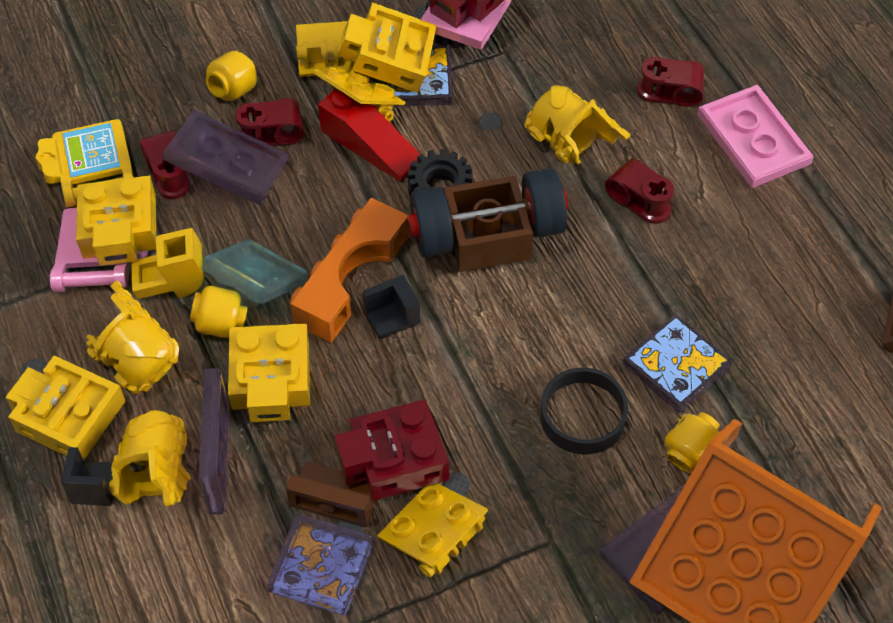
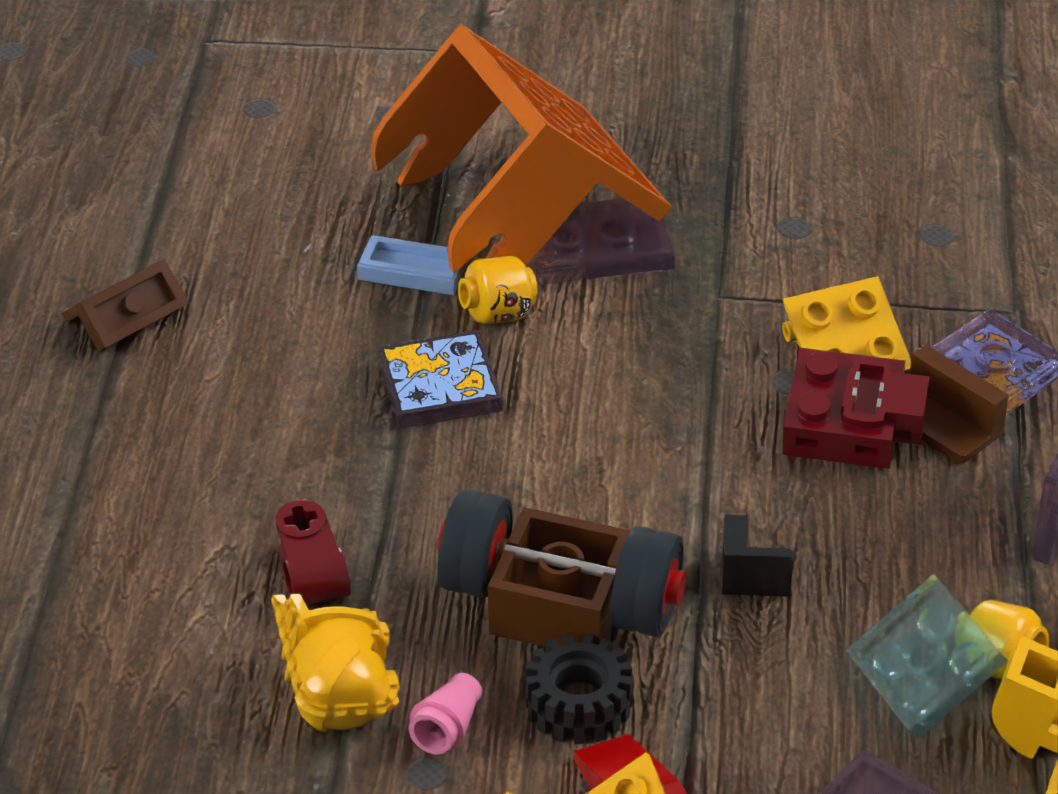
camera: 150 degrees left, 15 degrees down
(269, 370) = (965, 542): yellow piece -> none
(373, 236) = (727, 651): orange arch -> none
(498, 138) = (443, 716): none -> bright pink cone
(589, 376) = (592, 409): black tyre -> none
(674, 81) = (123, 683): dark red piece -> none
(755, 136) = (78, 582): bright pink tile -> none
(781, 452) = (408, 265): none -> light blue tile

